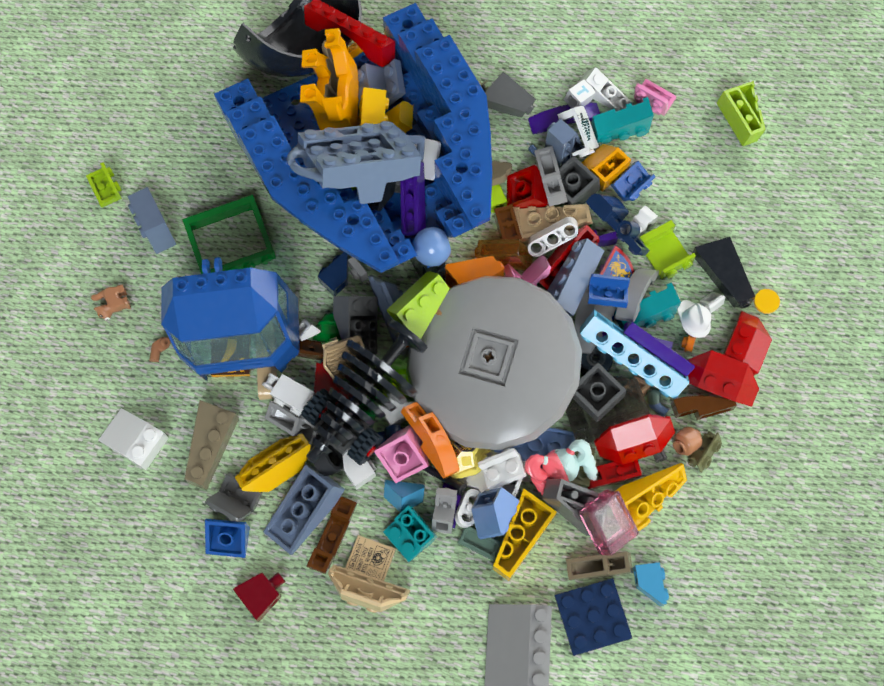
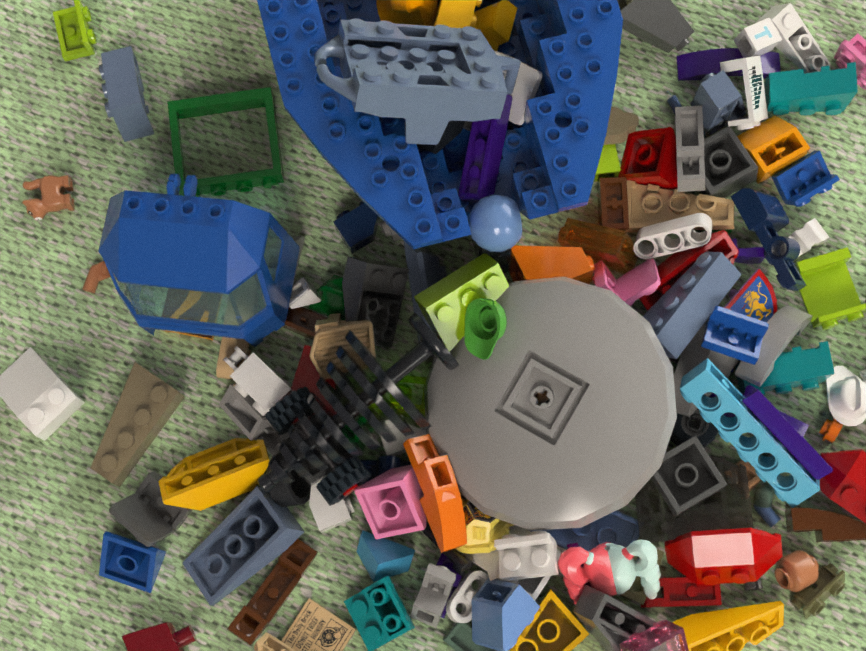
camera: 15 degrees right, 5 degrees up
(438, 318) = (484, 326): none -> bright green piece

